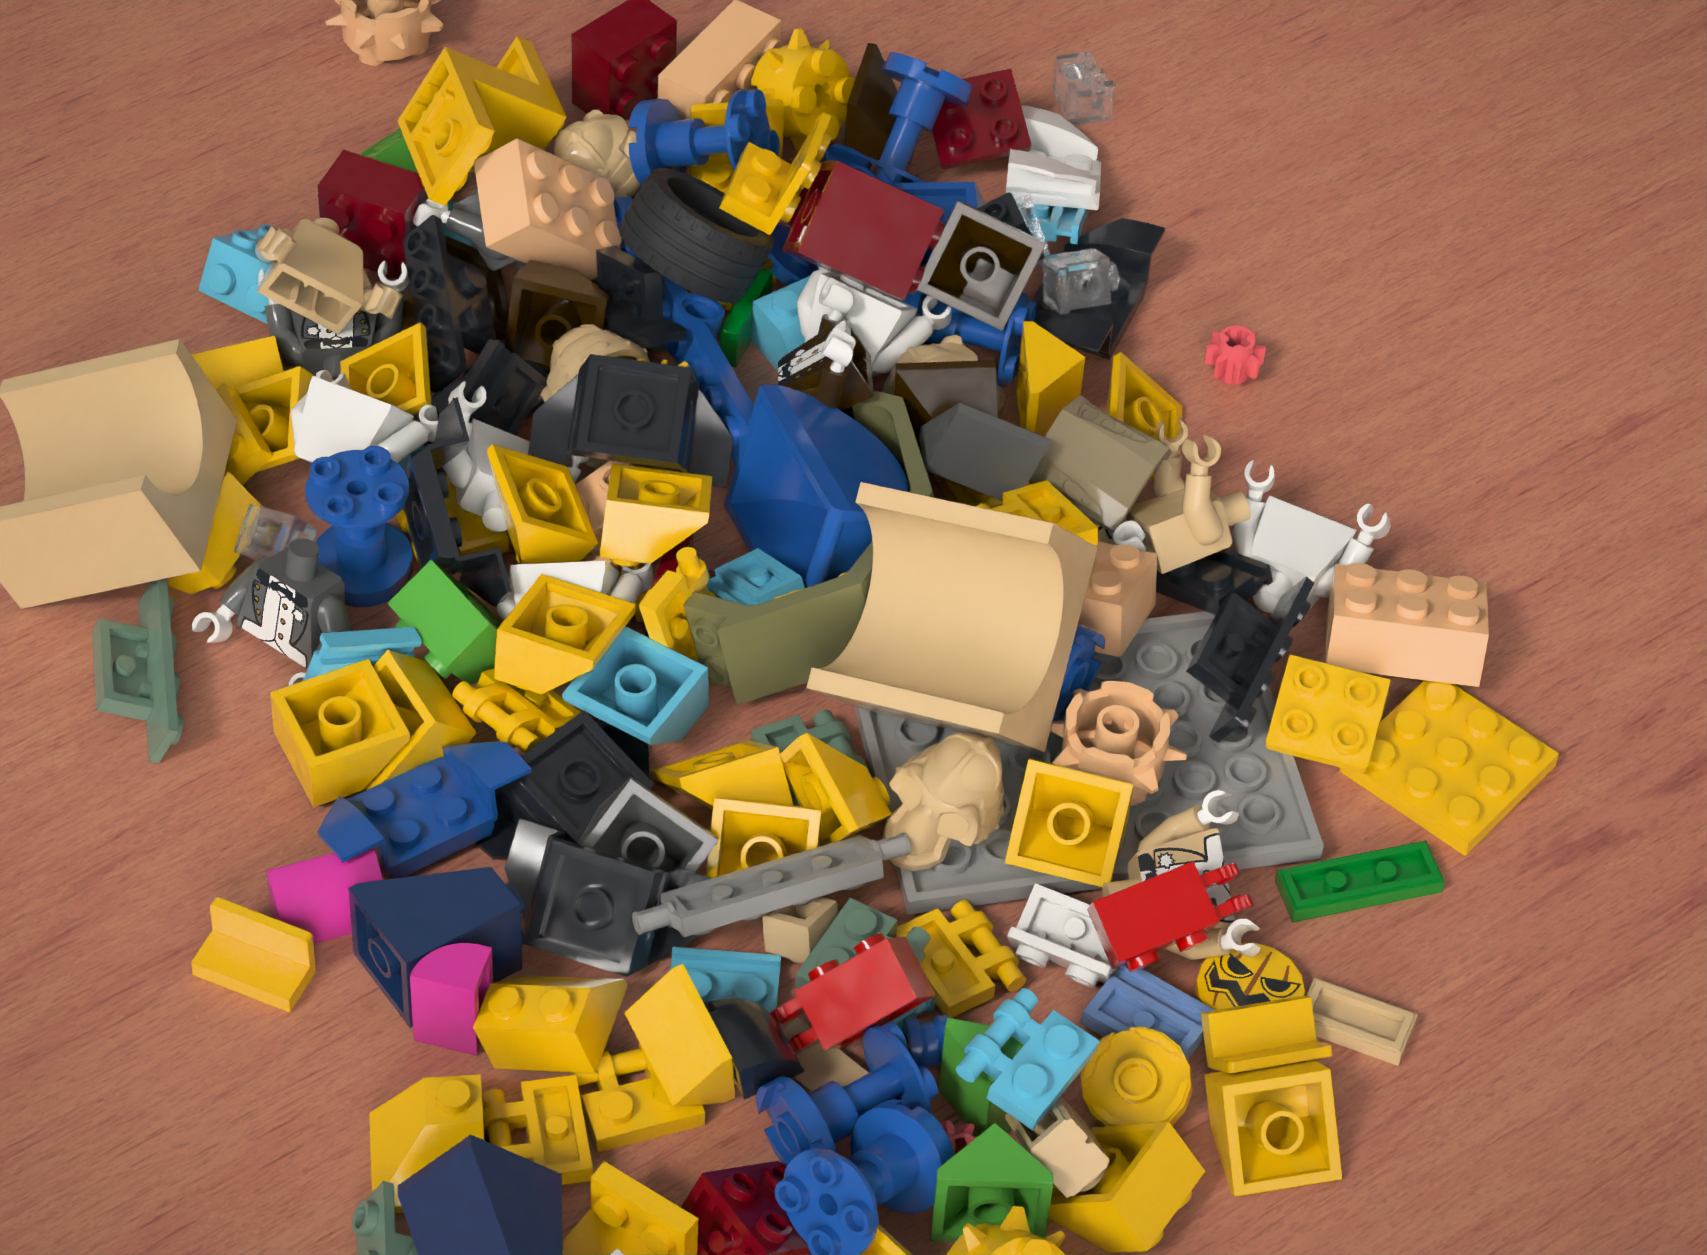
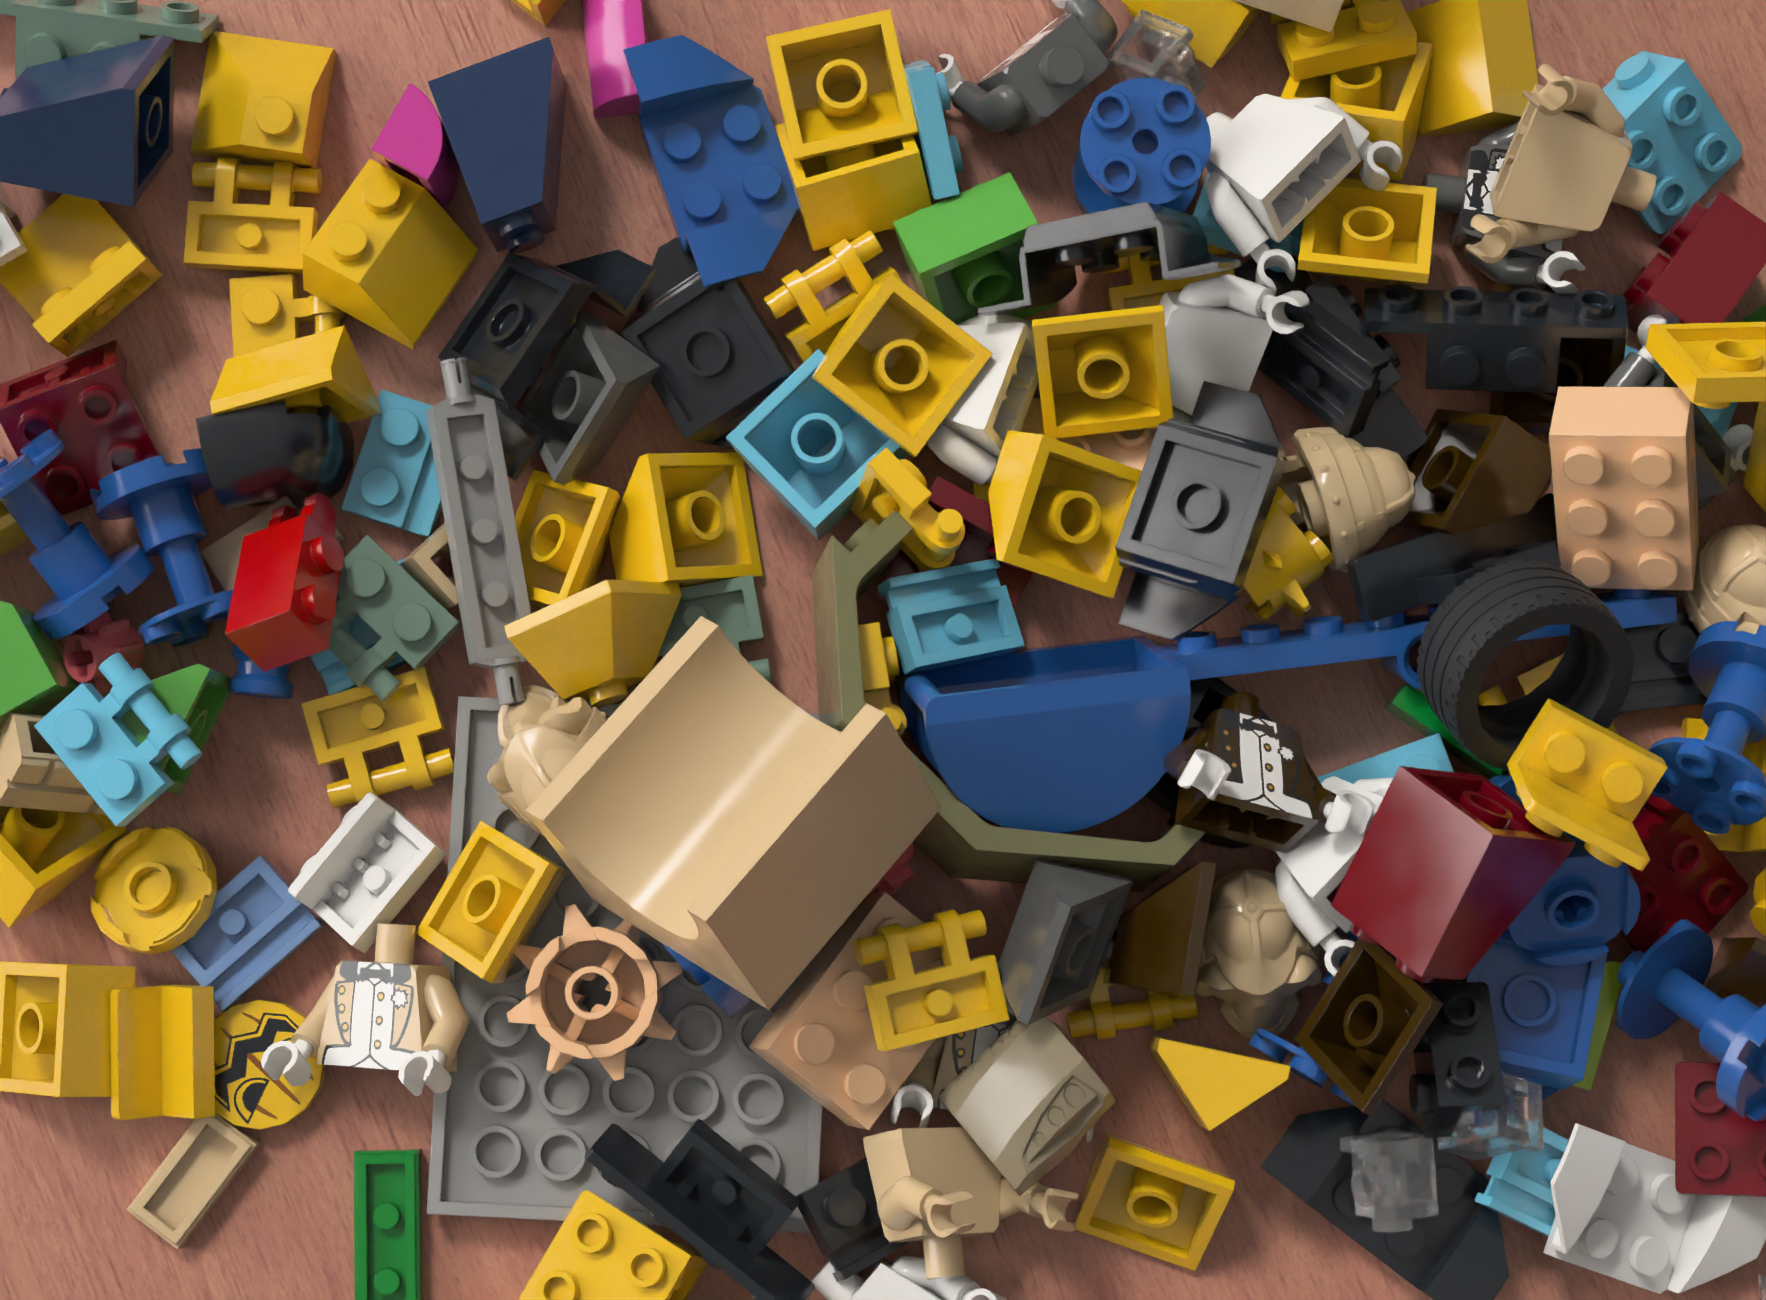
camera: 110 degrees right, 35 degrees up
(1162, 913) = (322, 973): red hinge -> none

